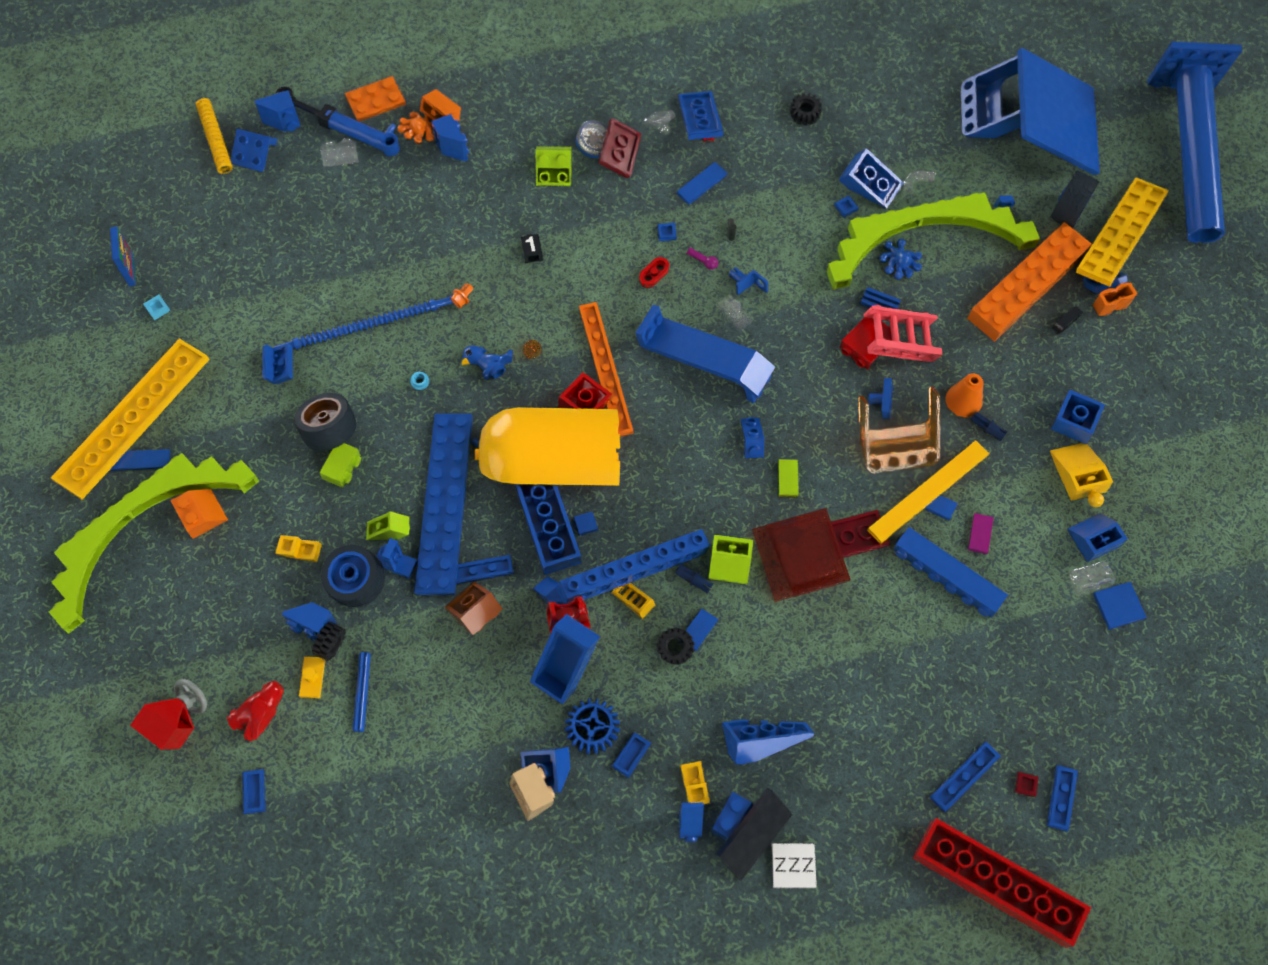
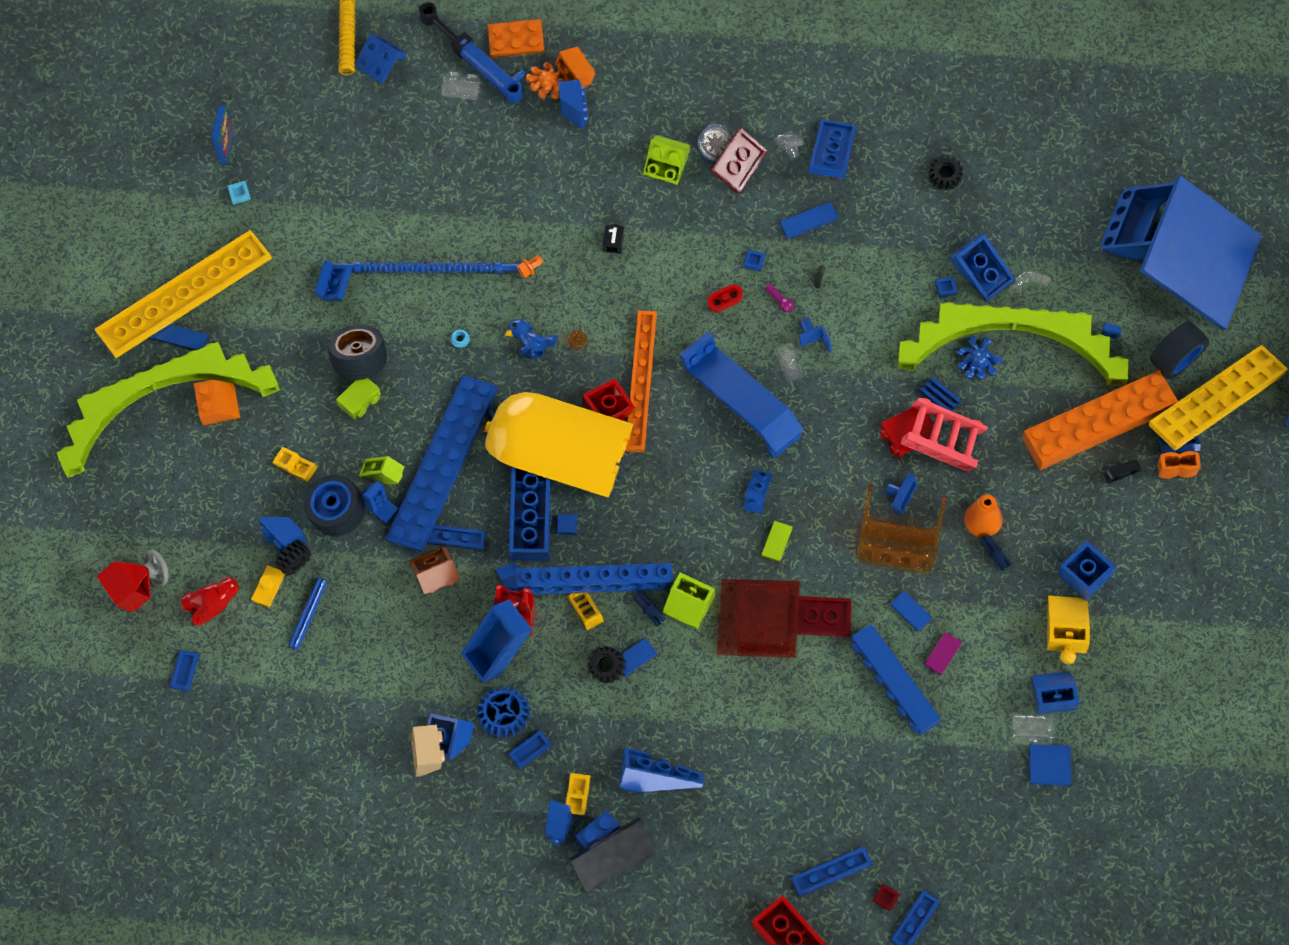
camera: 25 degrees right, 0 degrees up
(278, 111) = (416, 27): blue slope -> none
(793, 866) = (639, 895): white tile -> none
(927, 492) = (907, 597): yellow tile -> none

